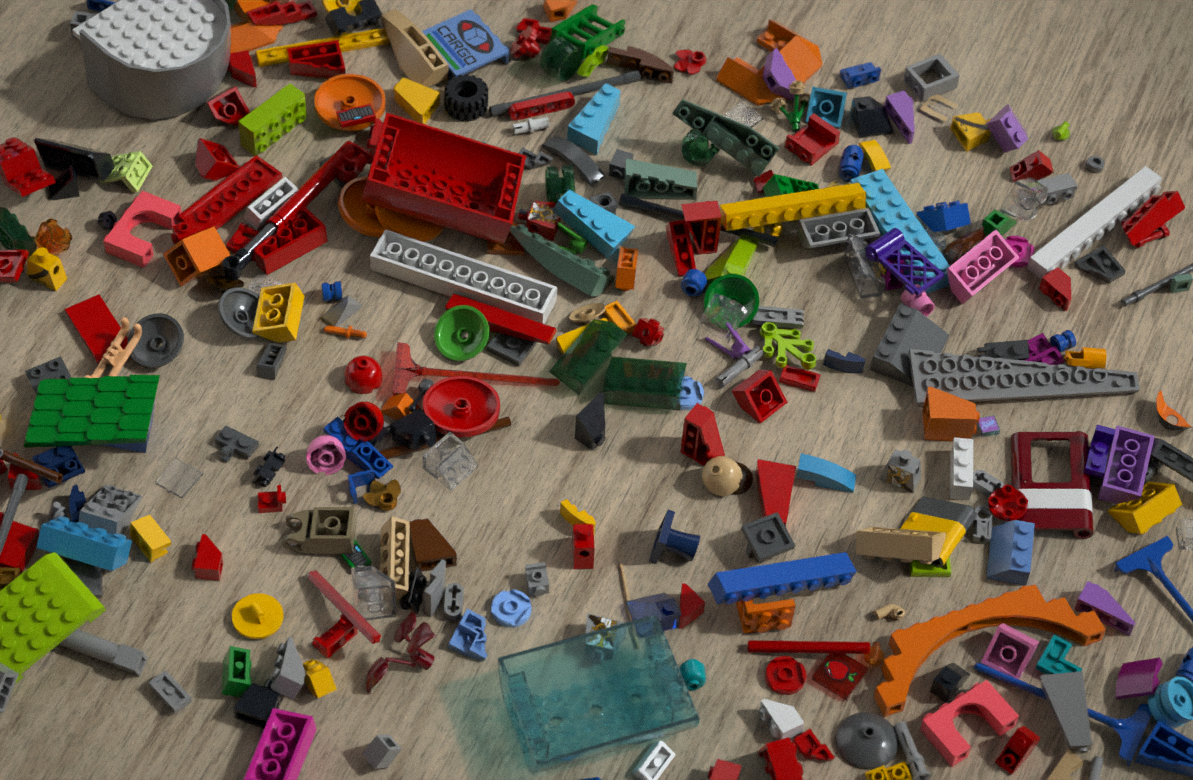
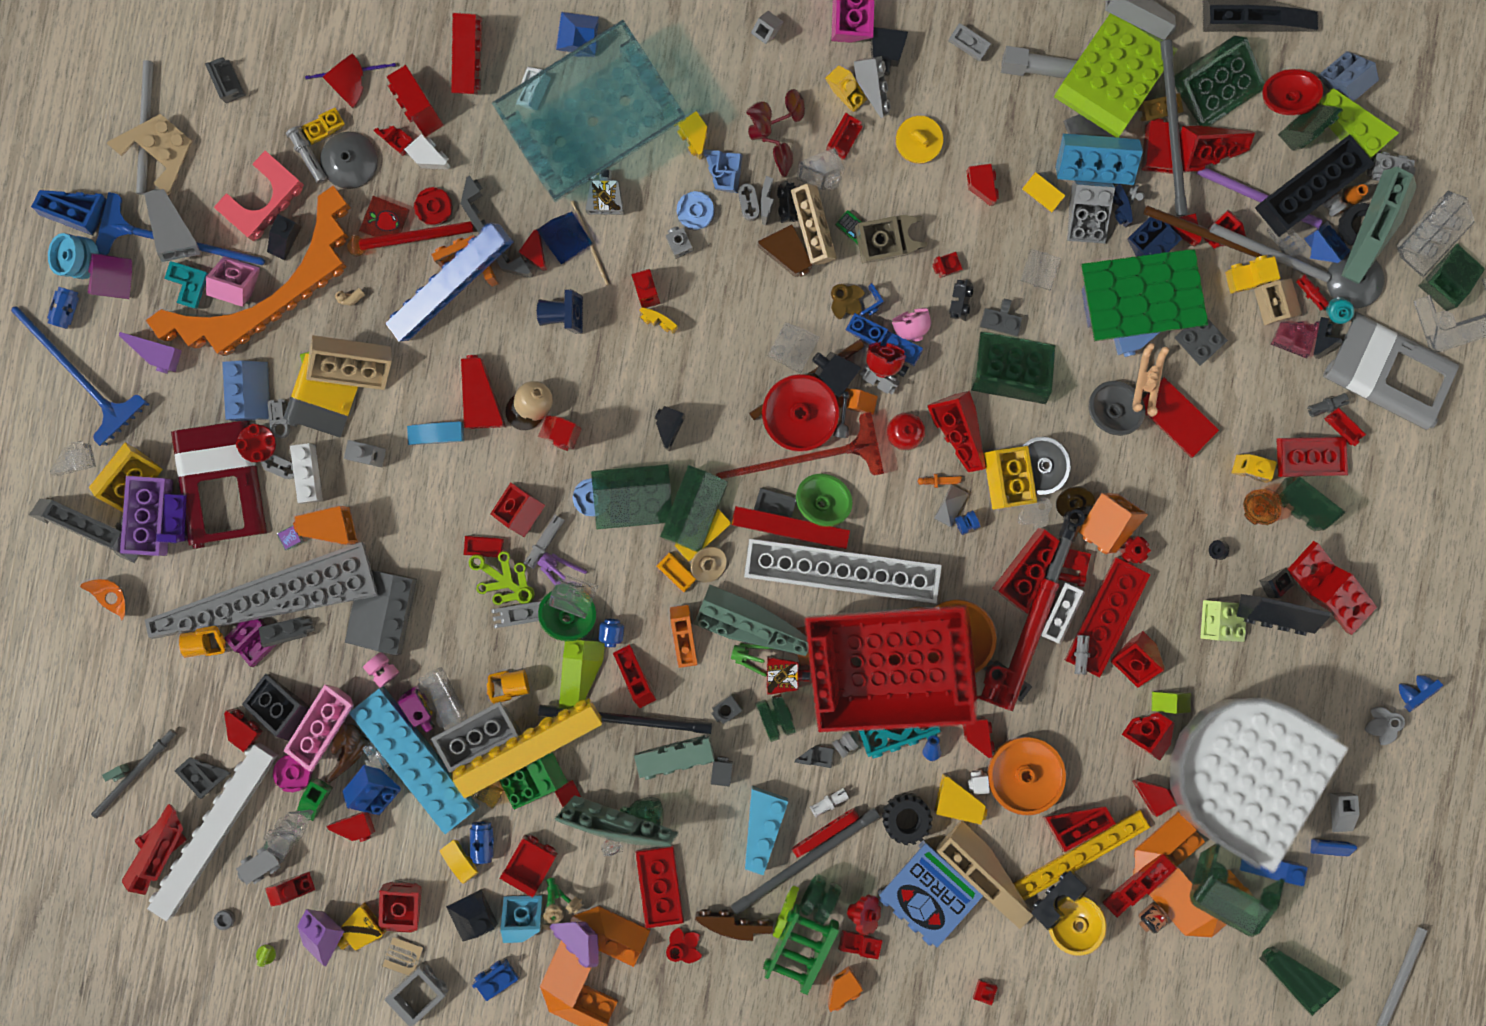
camera: 165 degrees right, 35 degrees up
(18, 73) = (1382, 726): none -> light grey plate
(144, 209) = (1197, 528): coral arch -> none
(199, 126) = (1171, 702): none -> lime slope
(236, 672) = (918, 70): green brick -> none
(239, 400) = (1013, 368): none -> clear green slope
(266, 170) = (1082, 655): none -> light grey pin
(270, 362) = (1006, 426): dark grey slope -> none
(272, 119) = (1098, 724): lime brick -> none
(308, 367) = (959, 423): none -> red wedge
(344, 606) = (846, 160): red axle -> none
(356, 115) = (1013, 751): tile -> none
(393, 107) = (979, 782): none -> white plate
(487, 673) = (695, 133): none -> yellow slope
(576, 157) = (773, 770): dark grey slope -> none
(593, 222) = (725, 674): medium azure wedge -> none
(648, 331) = (641, 555): red brick -> none
(693, 674) = (515, 178): teal head -> none
(700, 92) = (659, 886): none -> red tile
(704, 224) = (615, 695): red wedge -> none
(742, 671) = (472, 193): none -> dark grey slope
(745, 115) = (610, 881): clear piece -> none
(767, 537) = (474, 335): dark grey bracket -> none
(795, 265) = (512, 683): none -> light orange piece
(850, 363) = (437, 575): dark blue slope -> none
(892, 243) = (420, 710): dark purple piece -> none
(900, 109) = (440, 933): medium lavender slope -> none
(933, 137) = (399, 906): none -> red slope
(967, 194) = (354, 827): none -> red slope
(1017, 749) = (211, 180): red slope -> none
(1022, 297) = (276, 707): none -> black slope
(1063, 341) = (228, 661): blue wheel -> none

